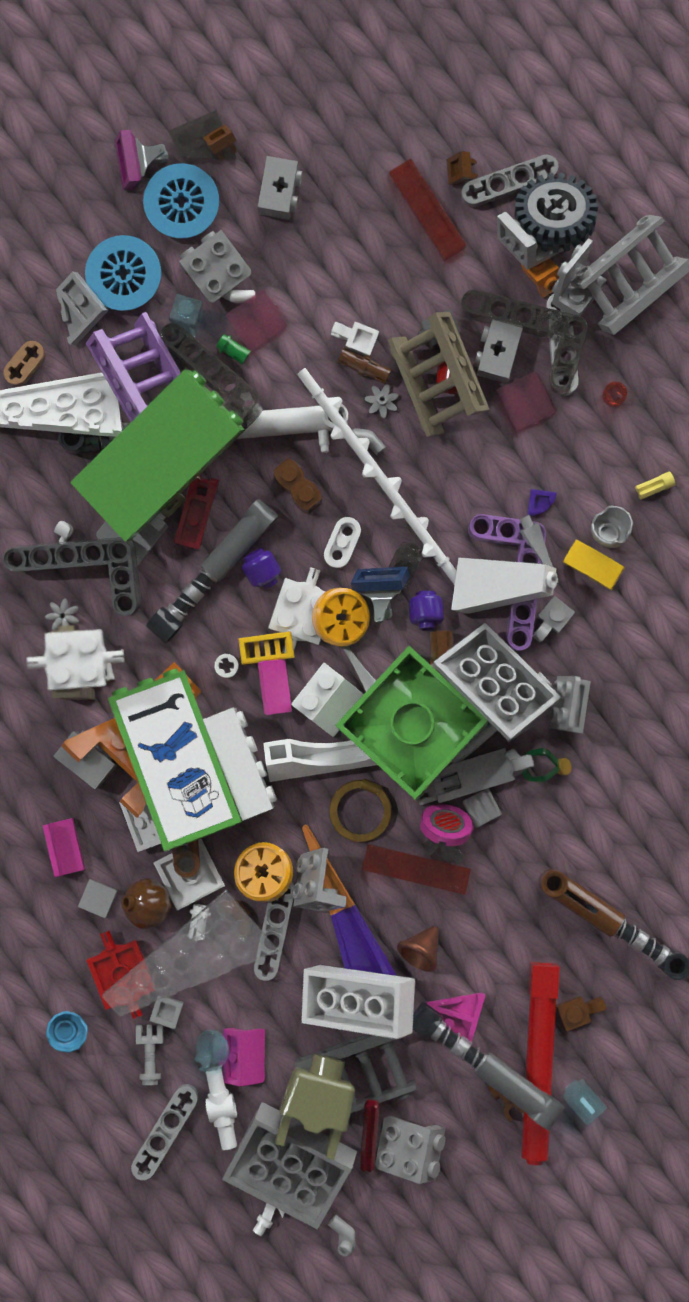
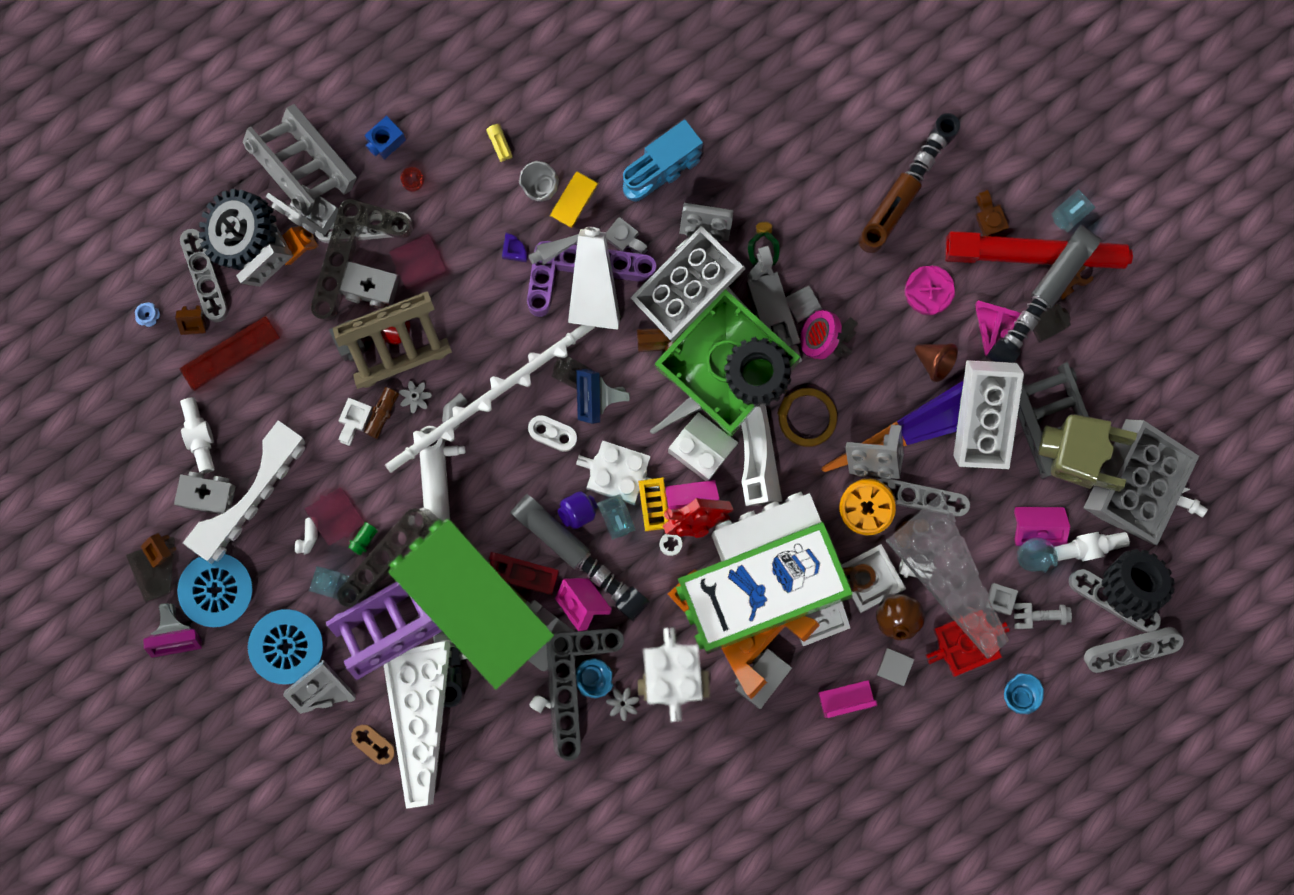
camera: 95 degrees left, 5 degrees down
(87, 585) = (593, 678): none -> dark azure hair
(115, 1149) = (1133, 647): none -> light grey beam
(165, 572) = (581, 601): none -> dark pink panel
(191, 1170) = (1149, 573): none -> black tyre
(214, 266) = (281, 555): light grey bracket -> none
(249, 691) = (696, 517): none -> red plate
(253, 608) = (616, 516): none -> clear light blue brick
(303, 491) = (492, 479): reddish brown brick -> none
(322, 260) = (213, 535): none -> white arch
(331, 604) = (611, 439): light orange wheel -> none
(340, 178) = (197, 435): none -> white pin
(346, 1233) = (1203, 430): light grey arm -> none
(369, 1135) = (1111, 406): dark red axle -> none
(402, 730) = (758, 350): none -> black tyre
(410, 1150) = (1123, 370): light grey bracket -> none
(416, 869) = (861, 365): clear red tile -> none
(426, 610) = (617, 354): dark purple head -> none
(461, 1075) = (1051, 323): none -> clear smoke bracket
(472, 118) = (145, 308): none -> light blue plate
(497, 944) = (929, 290): none -> dark pink tile
(633, 657) = (662, 161): none -> dark azure brick
(656, 375) = (388, 128): none -> blue brick

